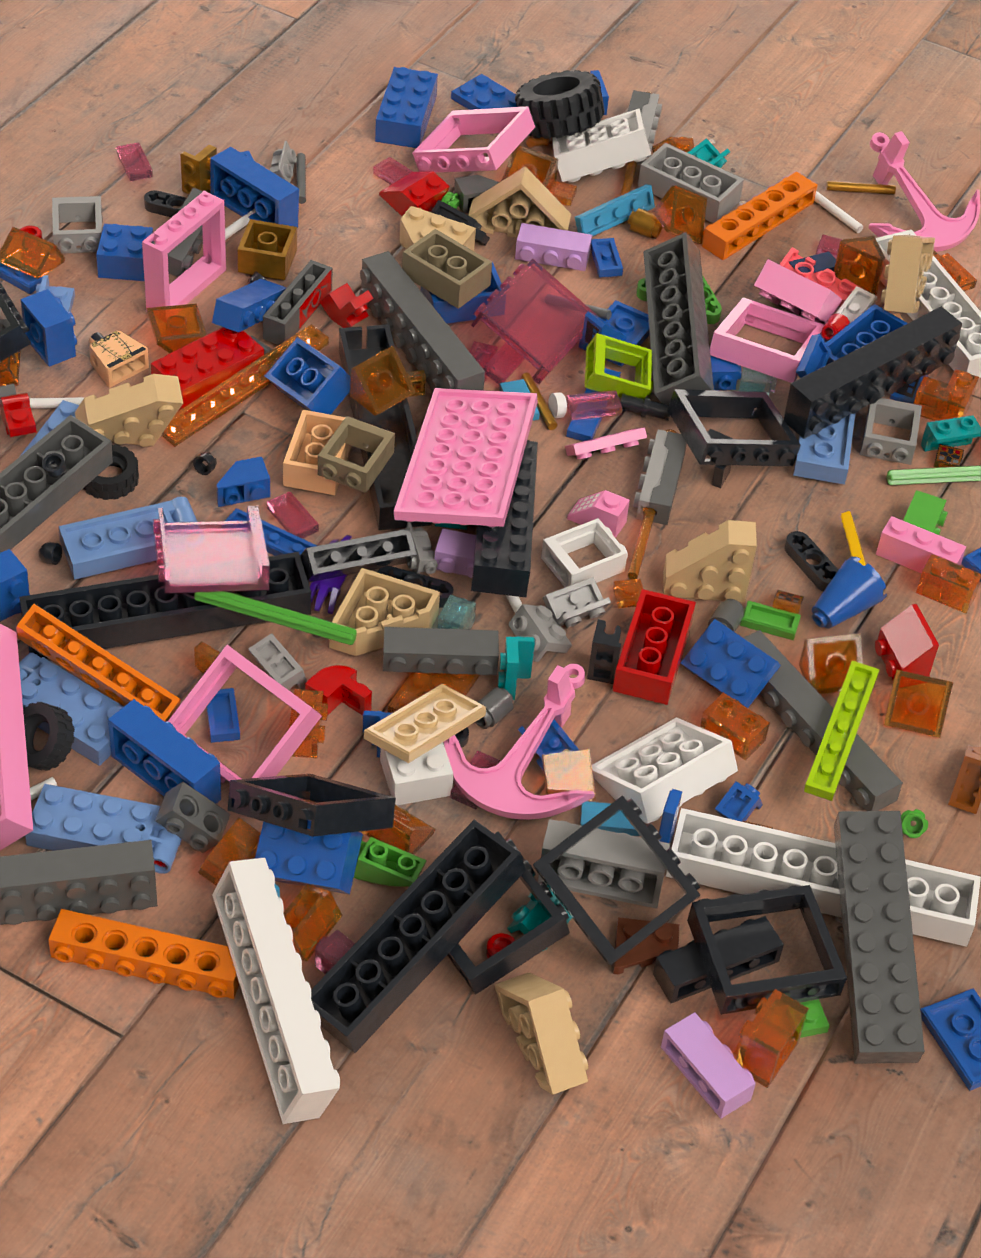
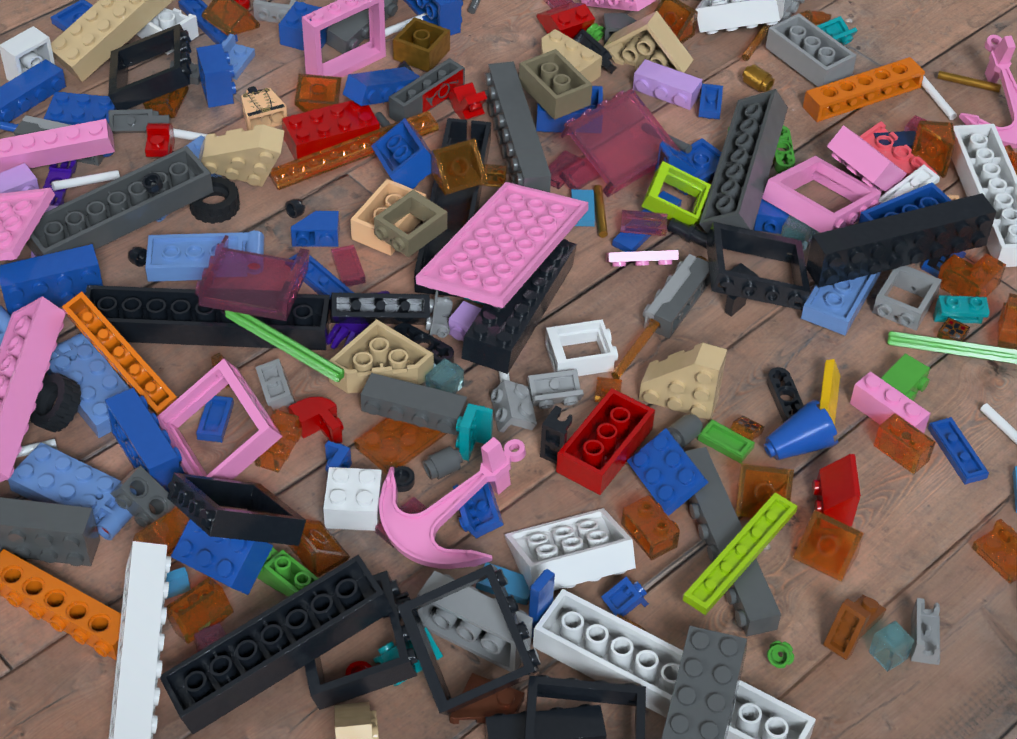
camera: 20 degrees right, 0 degrees up
(424, 723) = (370, 462): tan tile -> none
(557, 405) = (613, 217): white tile -> none
(563, 192) = (696, 41): clear orange tile -> none
(568, 771) = (481, 534): clear orange piece -> none
(606, 506) = (616, 316): bright pink slope -> none
(615, 211) = (733, 64): dark azure tile -> none
(682, 212) = (790, 75): clear orange slope -> none
(814, 356) = (854, 214): blue tile -> none
(834, 325) = (887, 193): red cone -> none
(904, 274) = (968, 157): tan brick -> none

